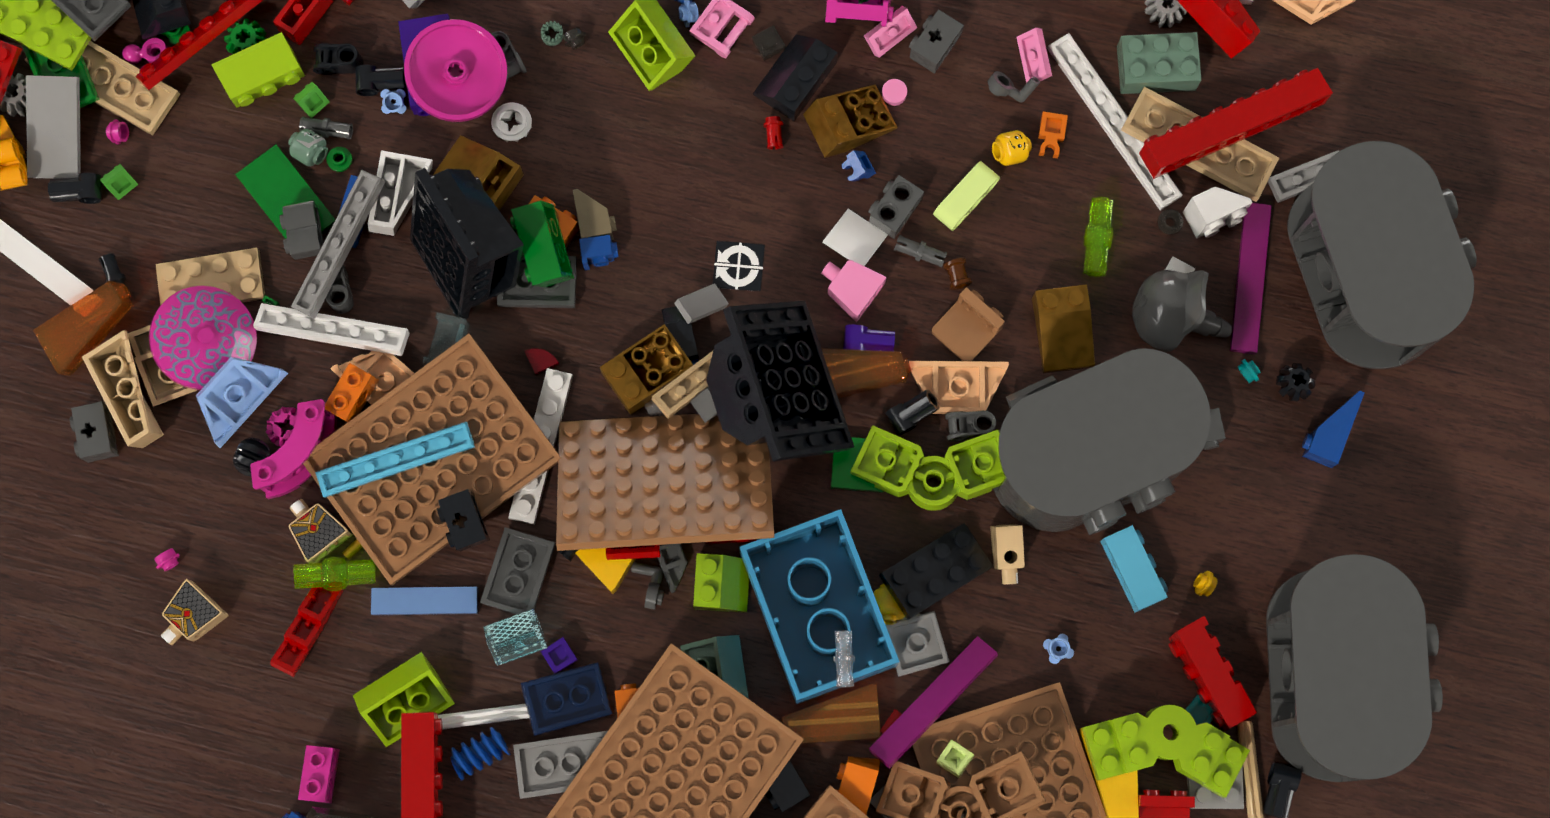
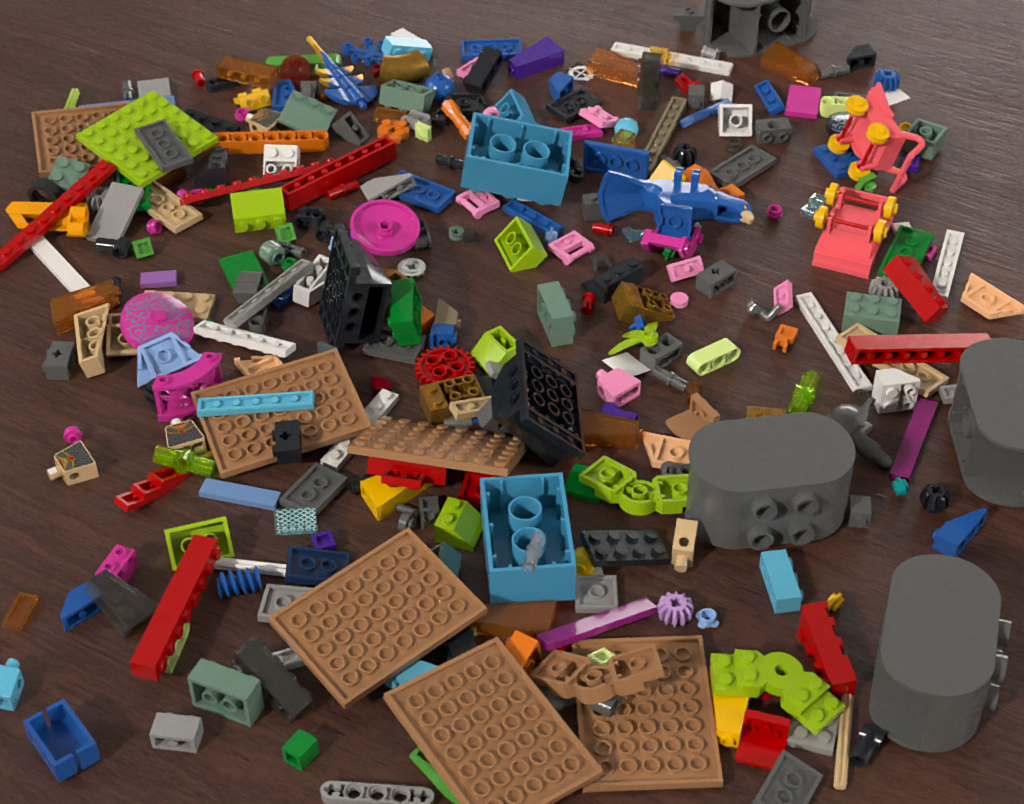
camera: 15 degrees right, 35 degrees down
(165, 234) = (158, 279): none -> medium lavender tile
(351, 393) = (242, 364): orange brick -> none
(603, 293) = (443, 365): none -> red gear
(679, 265) = (495, 346): none -> lime slope
(740, 176) = (555, 313): none -> sand green brick
(866, 192) = (647, 337): none -> lime plant
(907, 414) = (637, 457): black piece -> none
(1010, 651) = (675, 609): none -> lavender gear
(1011, 148) = (753, 338): yellow head -> none

